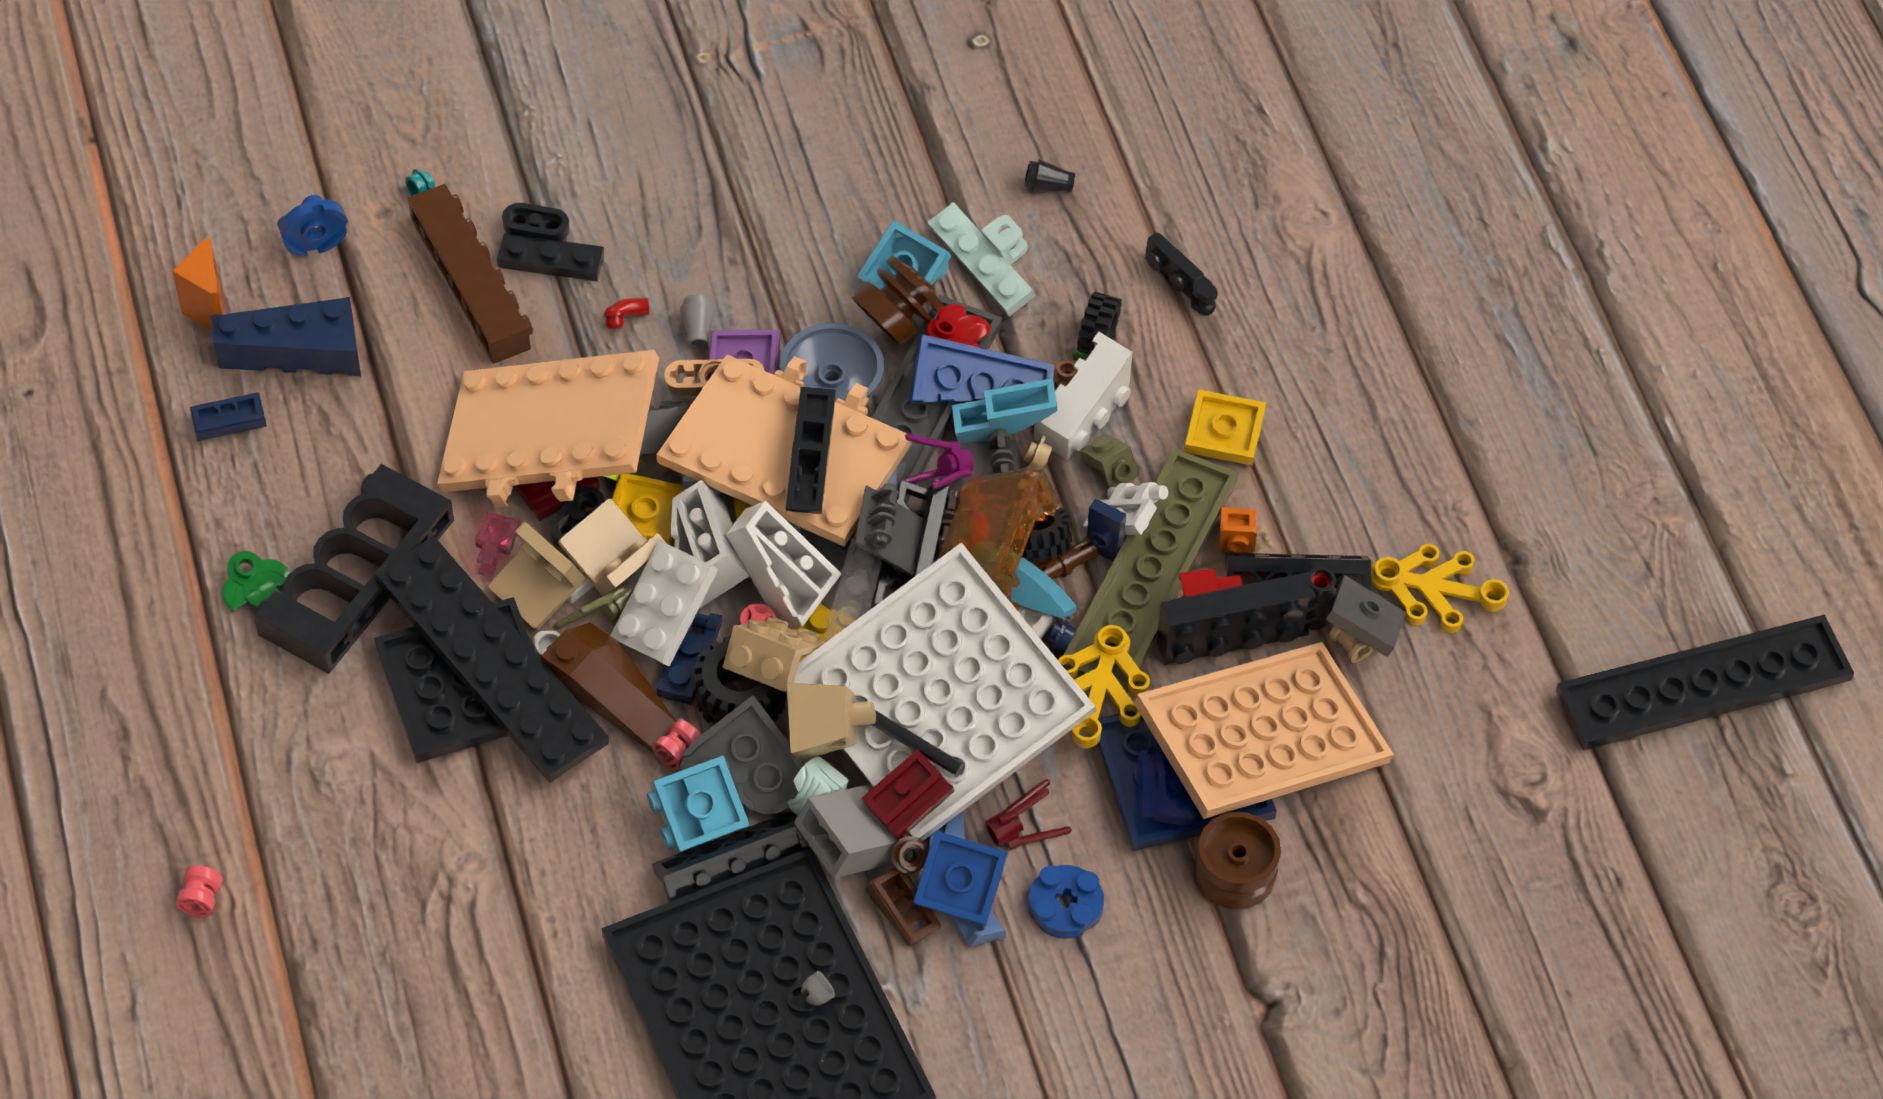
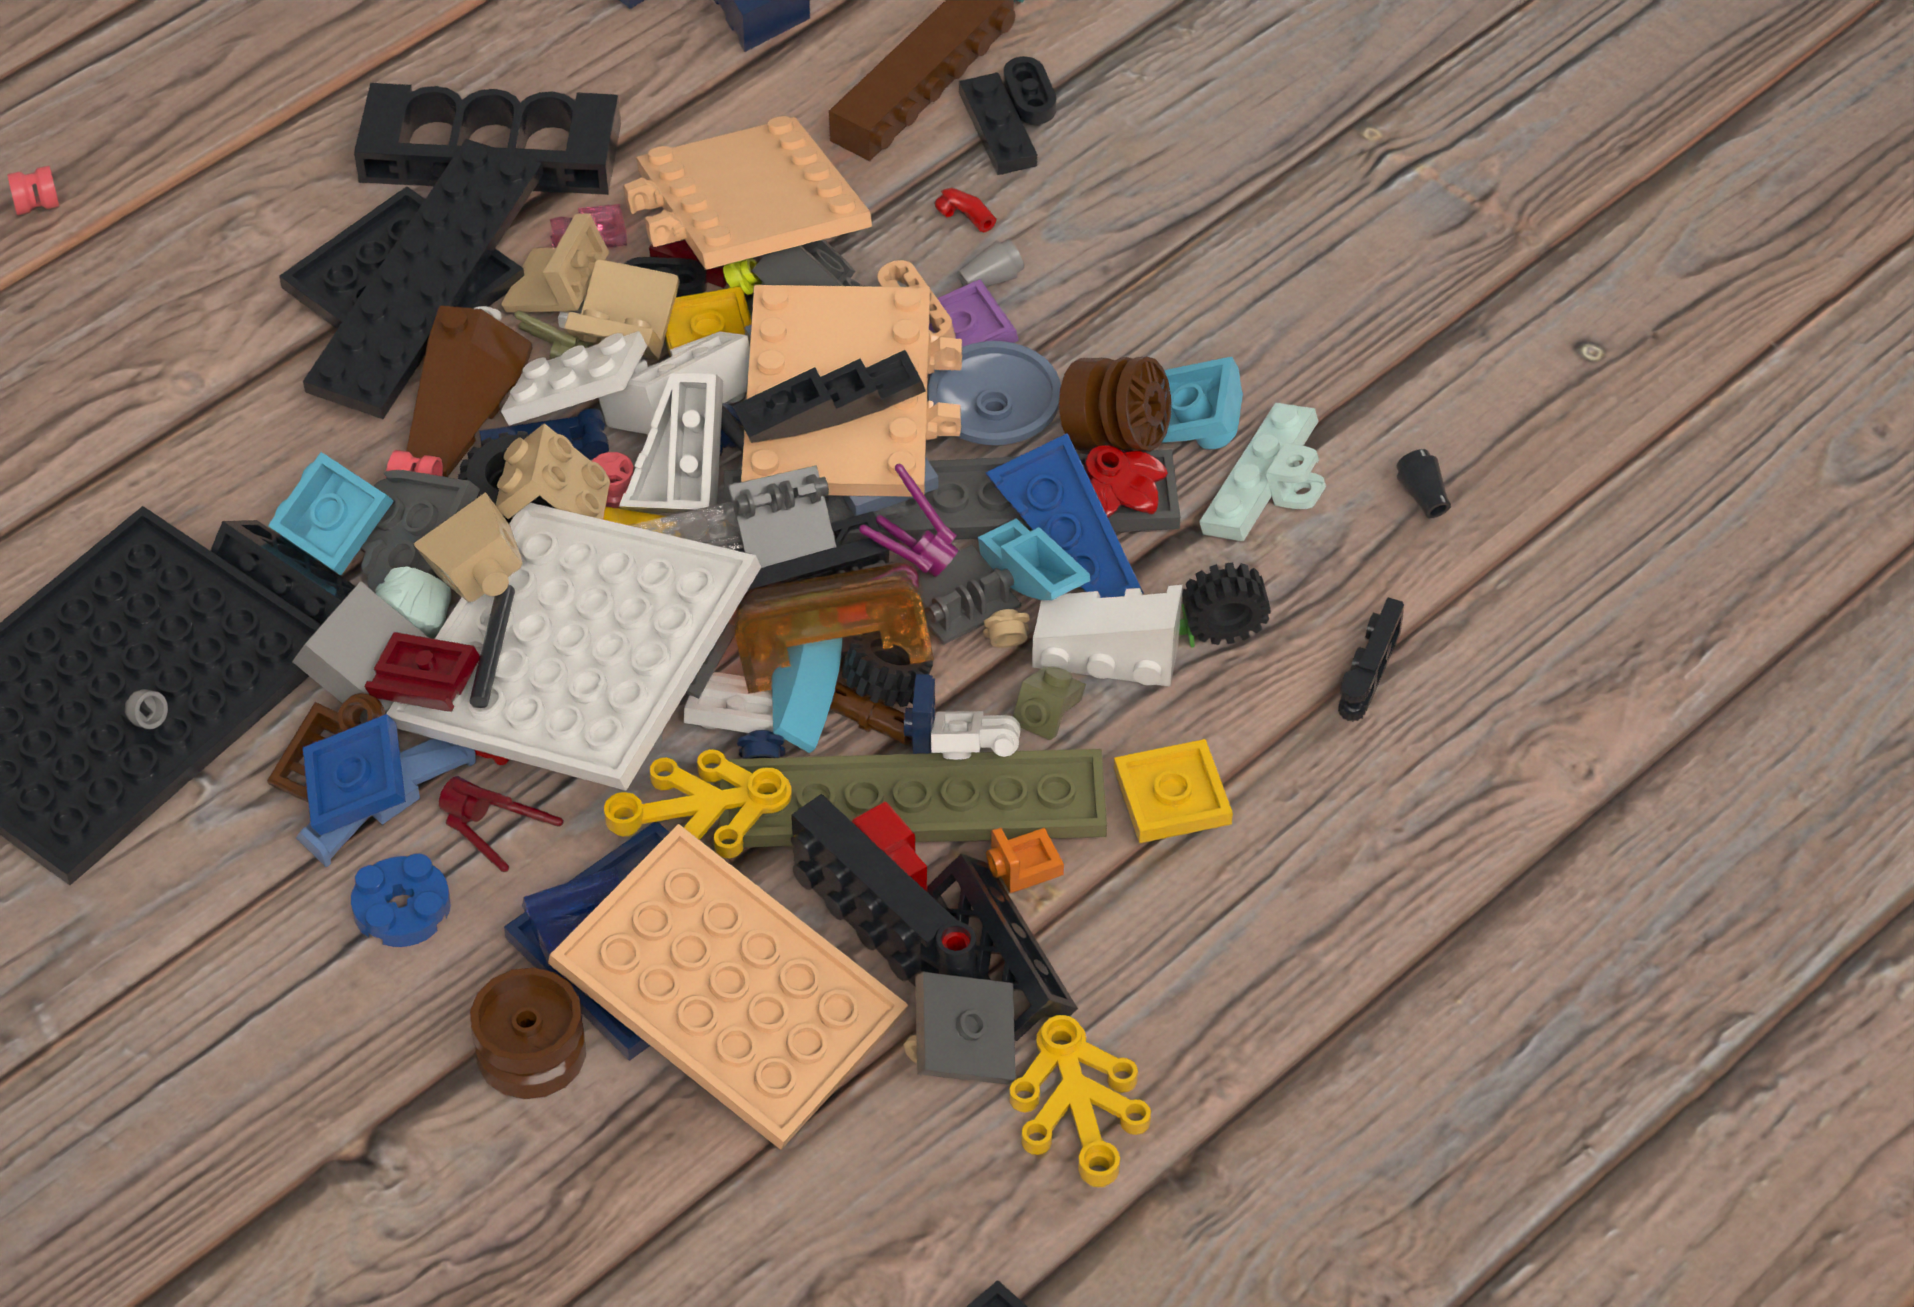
camera: 65 degrees right, 5 degrees down
(252, 585) = (422, 71): green plate -> none

